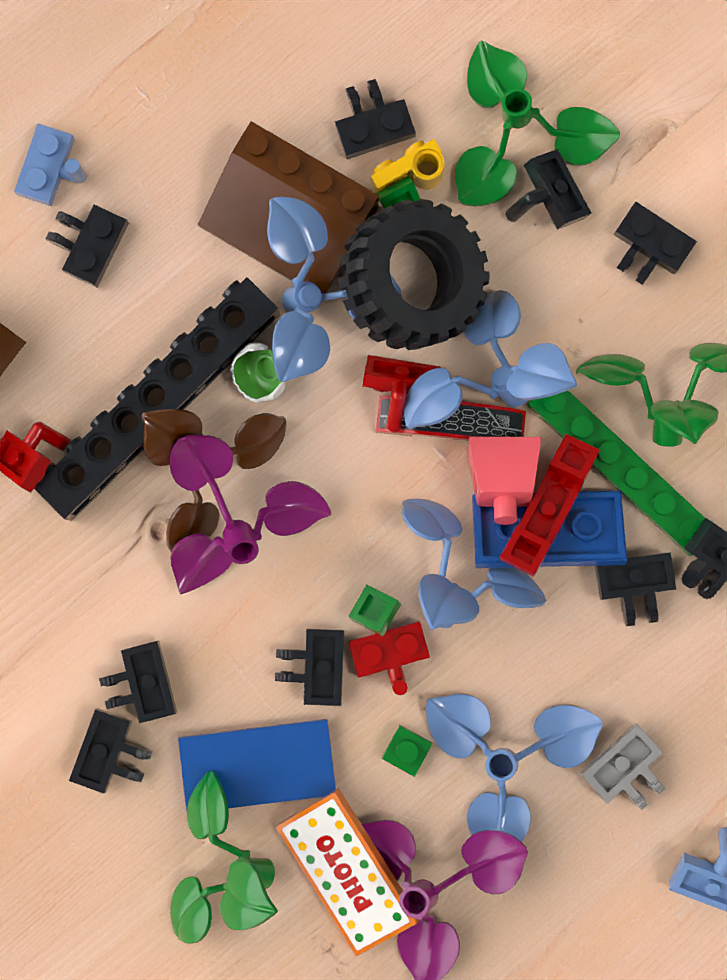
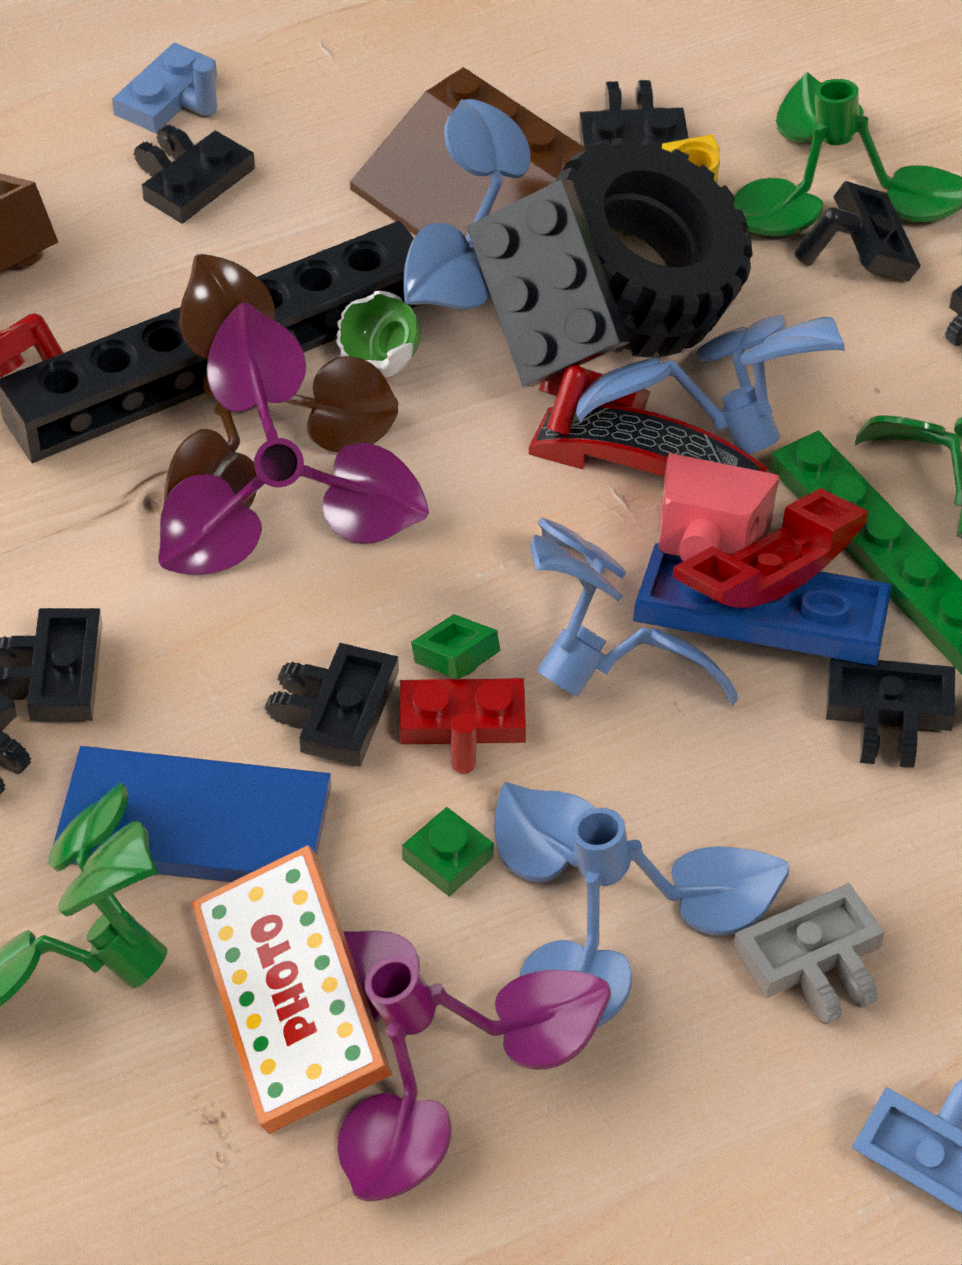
camera: 10 degrees right, 35 degrees down
(367, 344) = (547, 283): none -> plate

